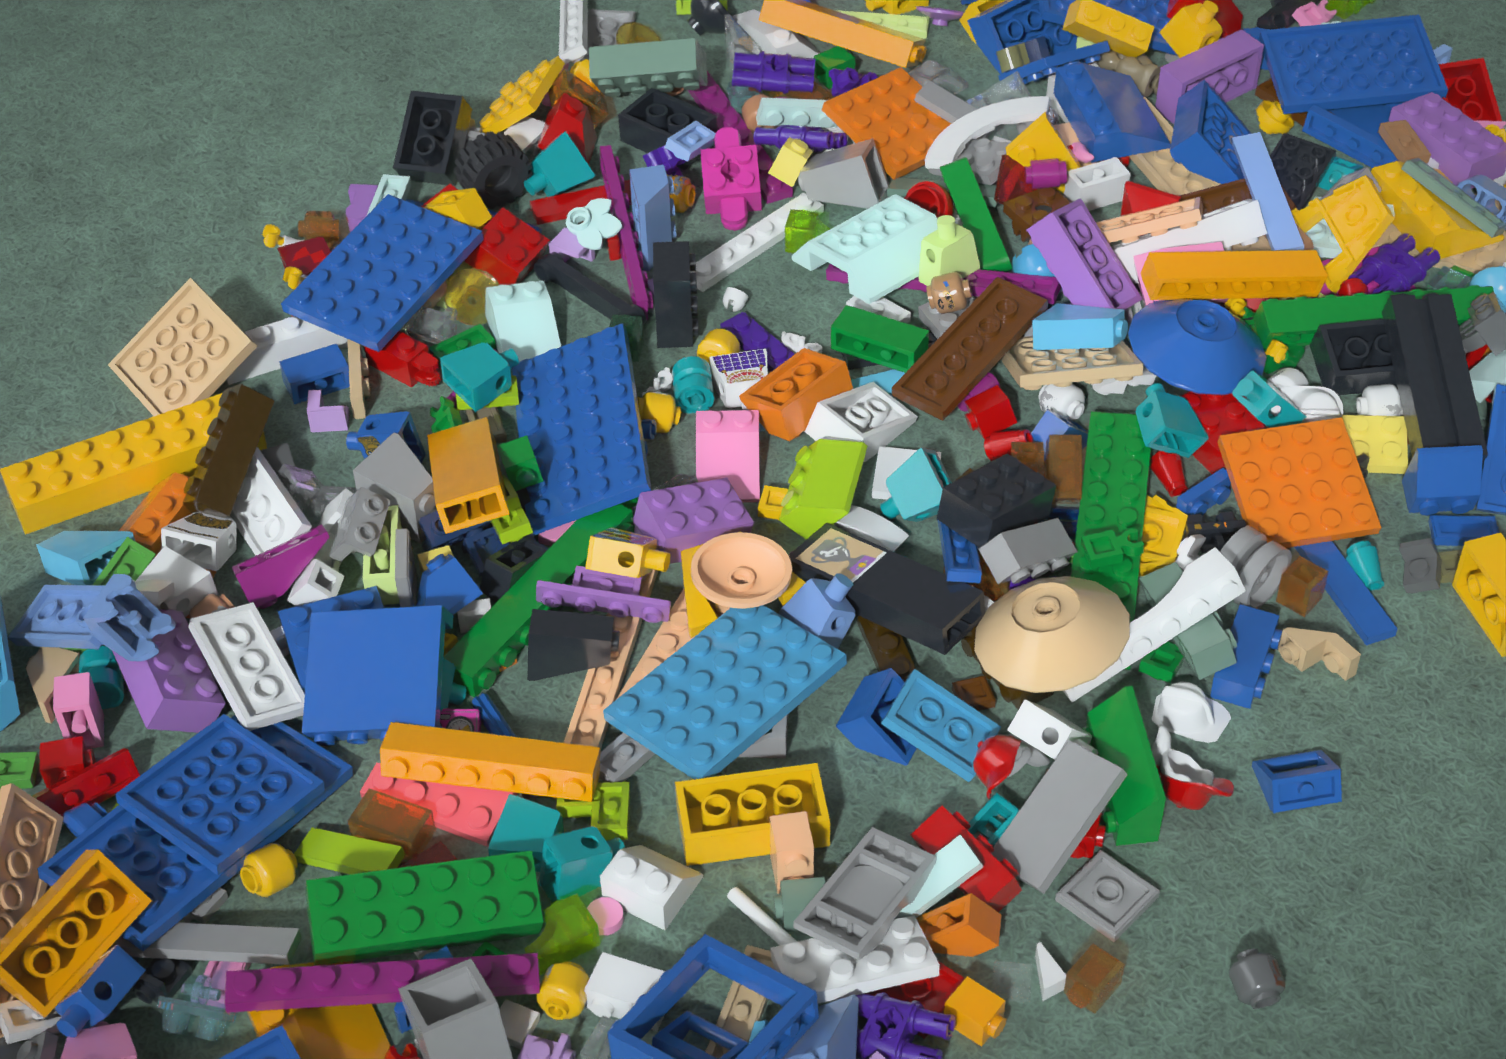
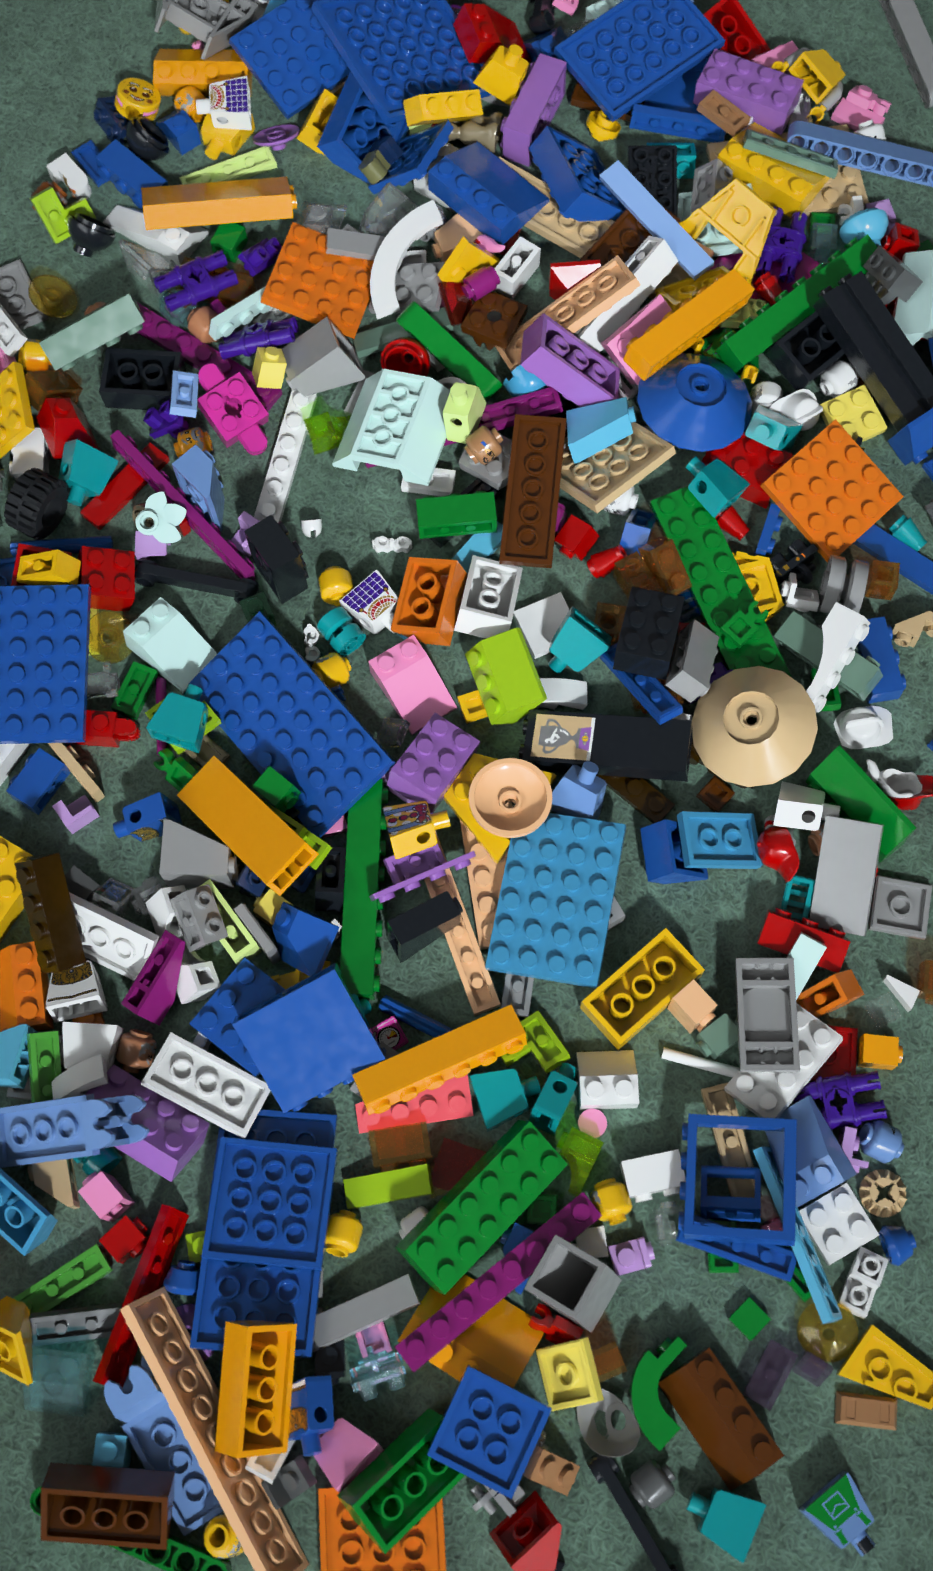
camera: 30 degrees left, 25 degrees up
(755, 337) = (358, 558): dark purple plate -> none

